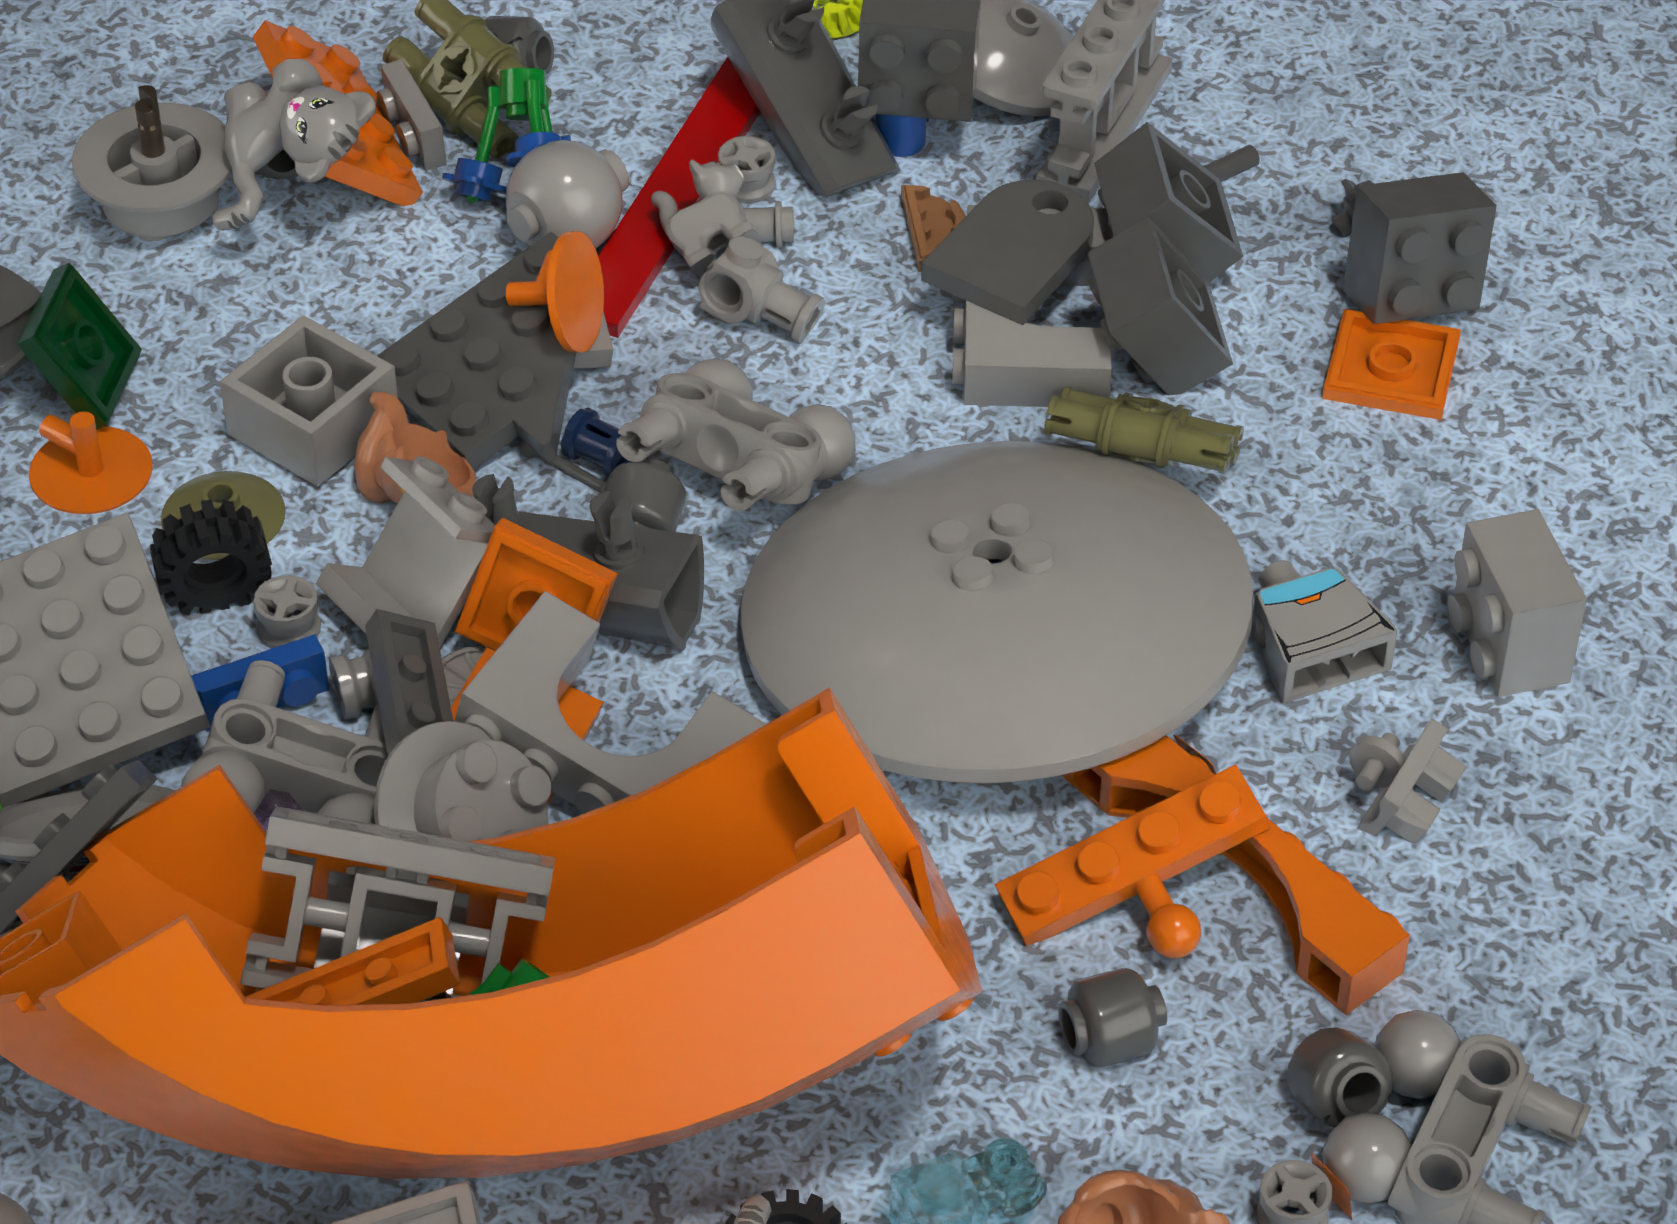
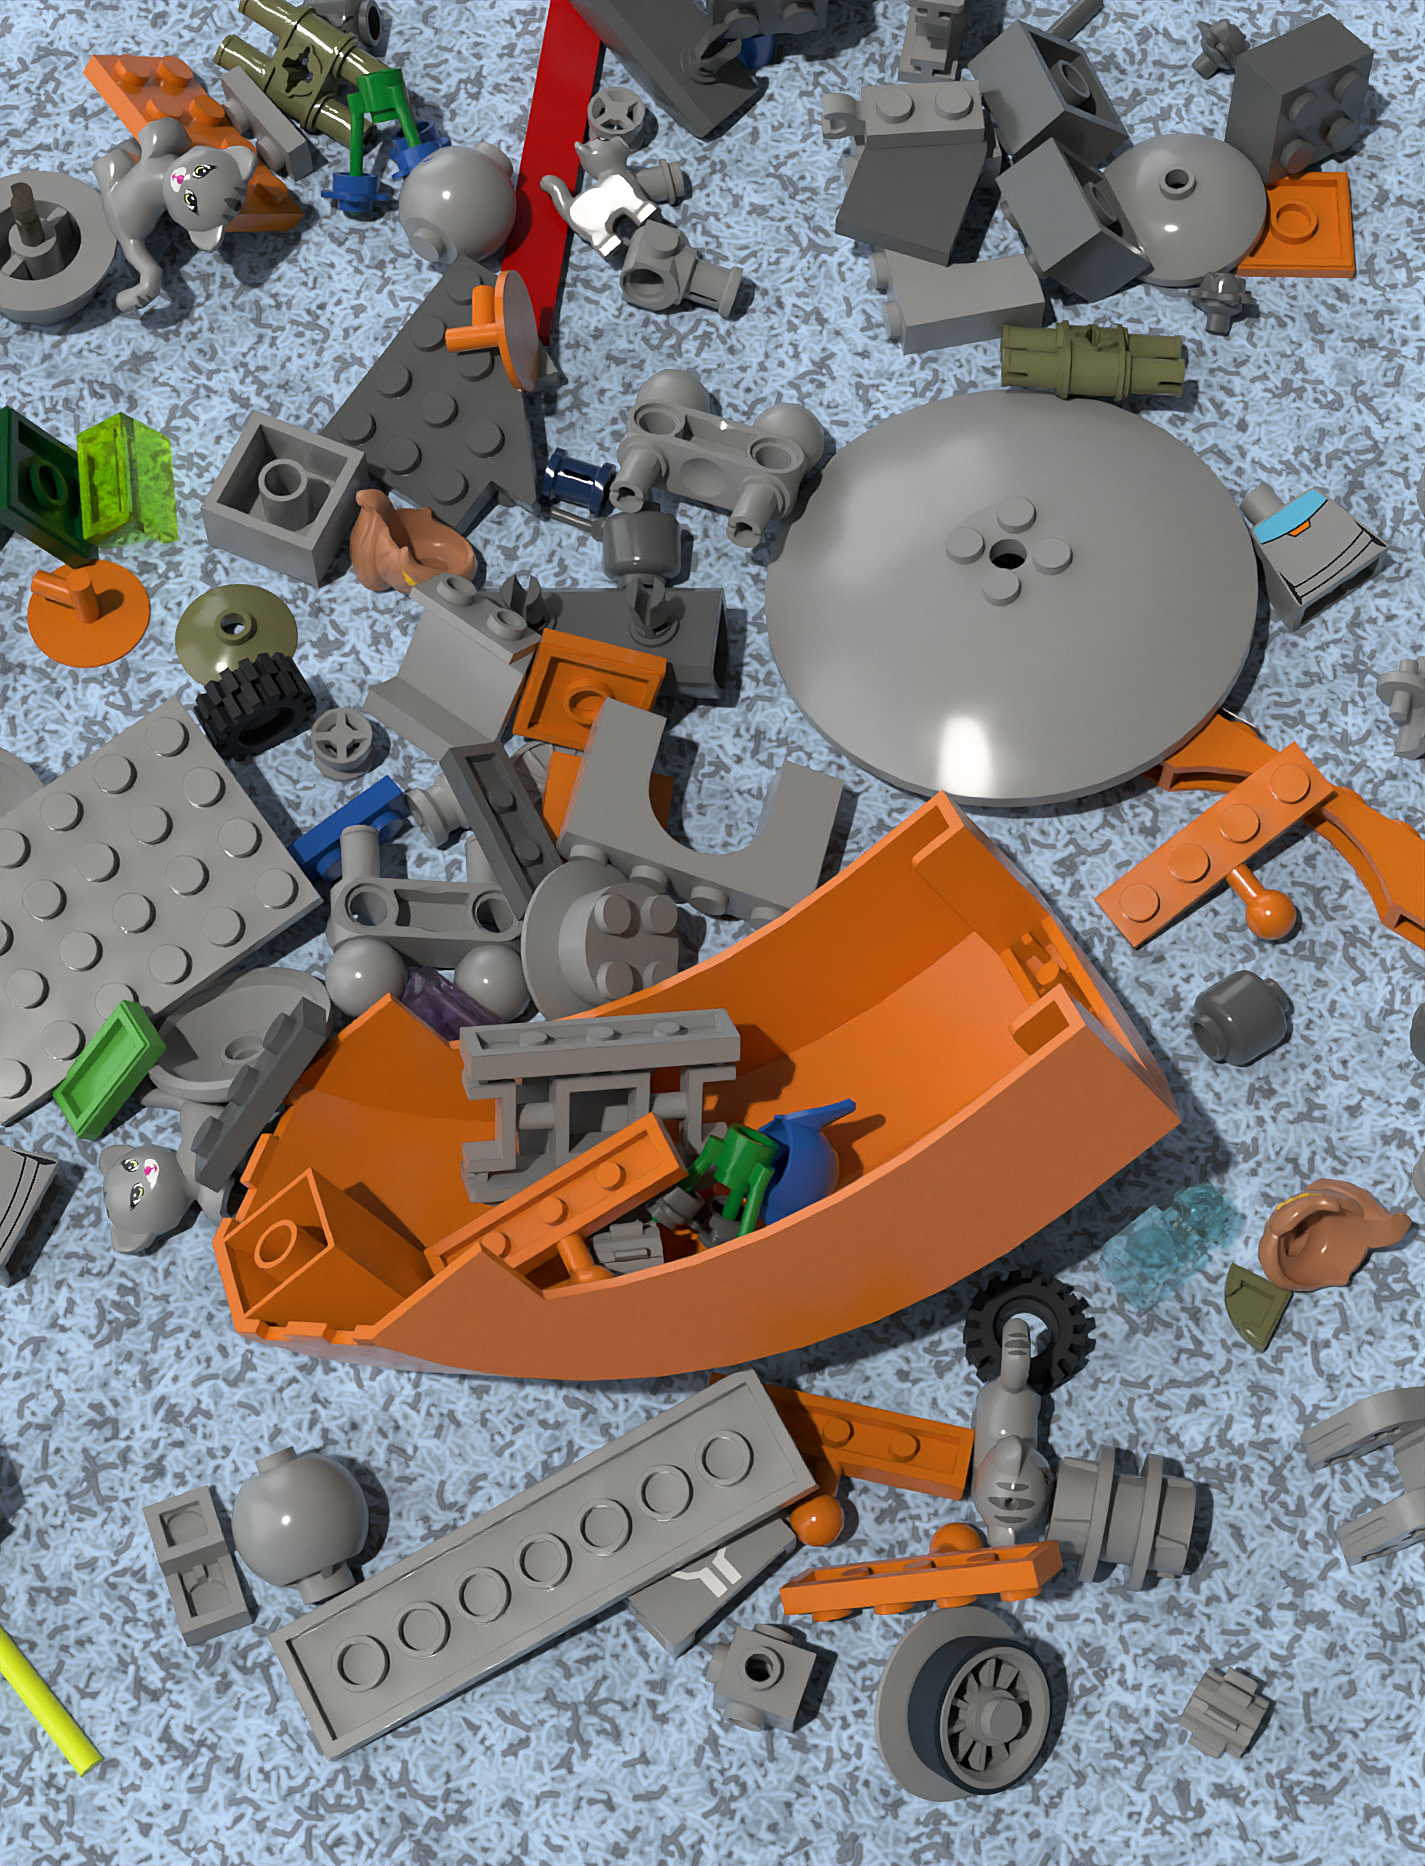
camera: 15 degrees left, 20 degrees up
(168, 362) = (126, 481): none -> clear neon green panel
(928, 219) = (814, 157): medium nougat tile -> none
(1017, 188) = (907, 115): none -> light grey plate
(1289, 329) = (1196, 227): none -> light grey dish
(1298, 407) = (1221, 298): none -> dark grey plant

